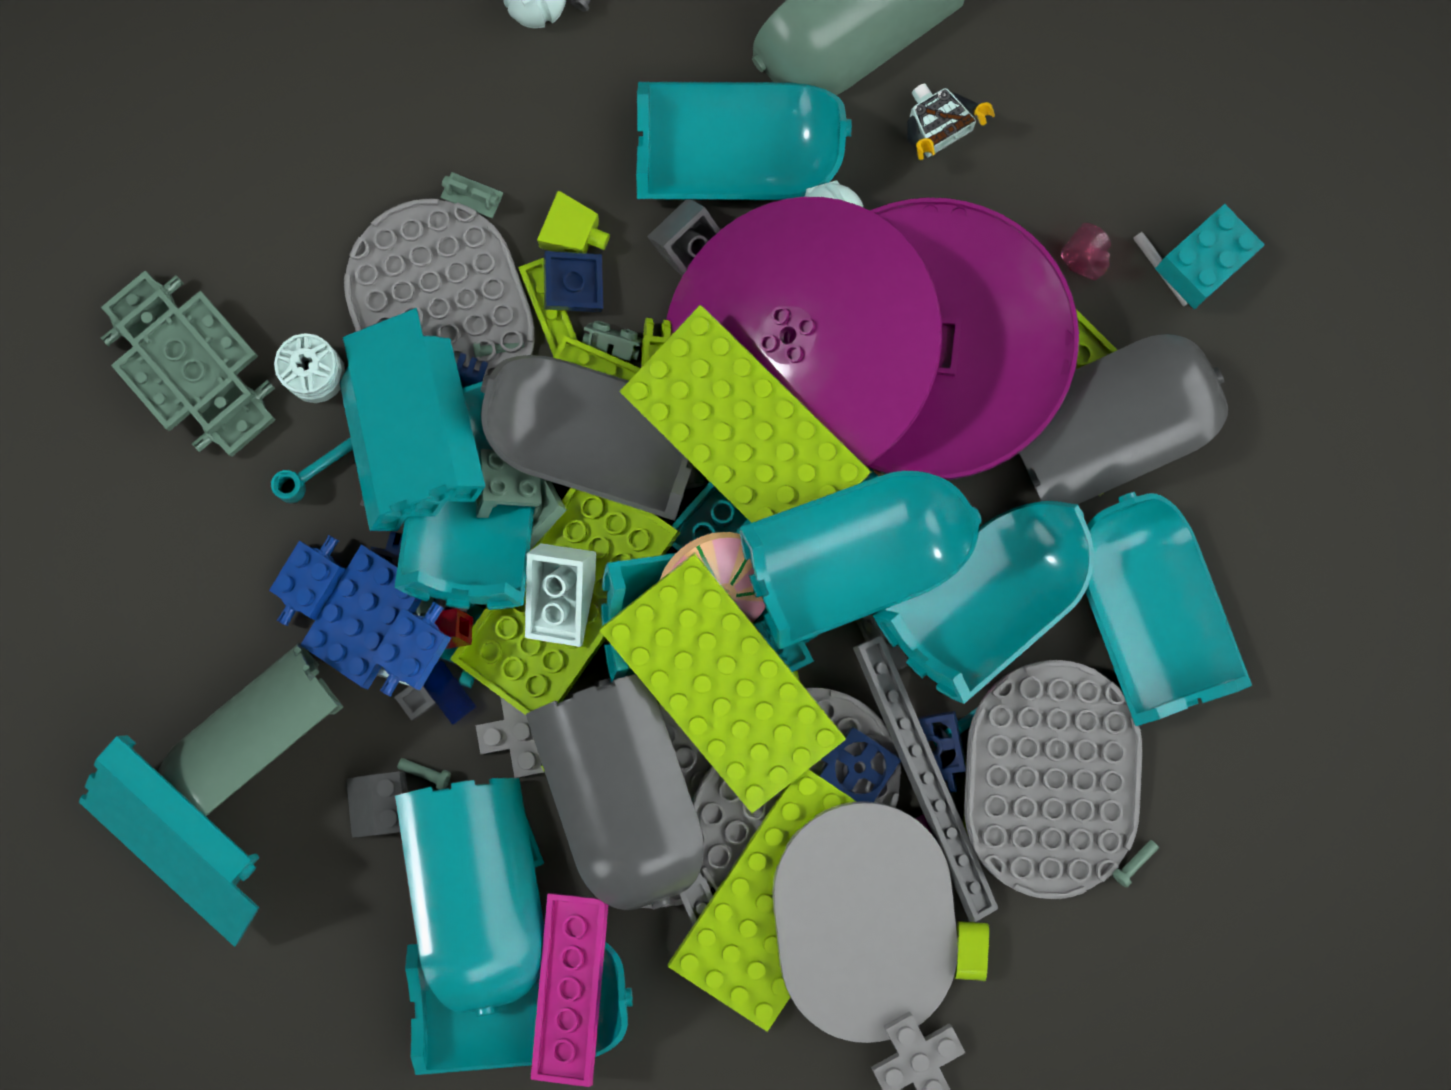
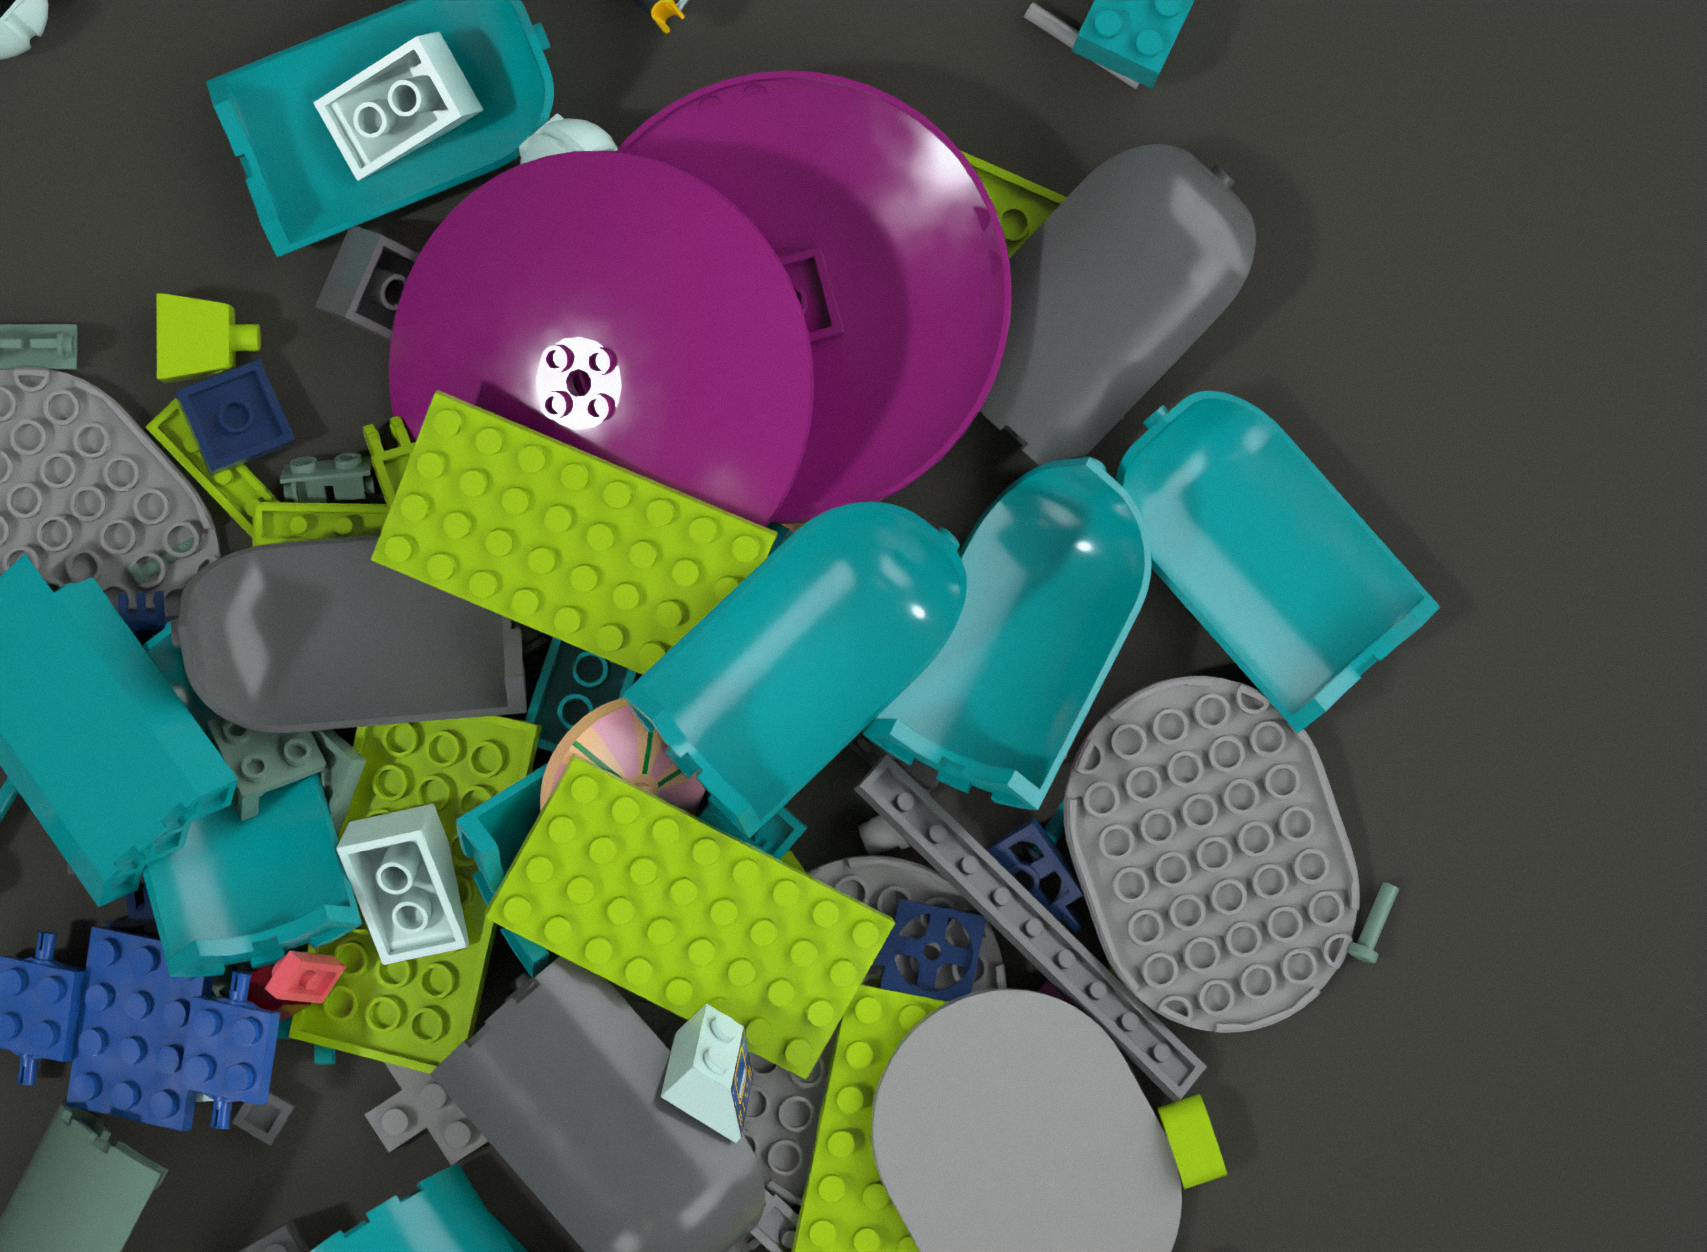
camera: 25 degrees left, 5 degrees up
(441, 779) = (342, 1210): sand green piece -> none
(448, 693) = (308, 1085): clear blue plate -> none
(475, 624) = (304, 977): none -> coral plate
(697, 782) = (711, 1072): none -> light aqua slope
(745, 139) = (398, 105): none -> light aqua slope
(857, 685) = (880, 836): none -> light grey piece
(1086, 250) = (962, 67): clear pink piece -> none

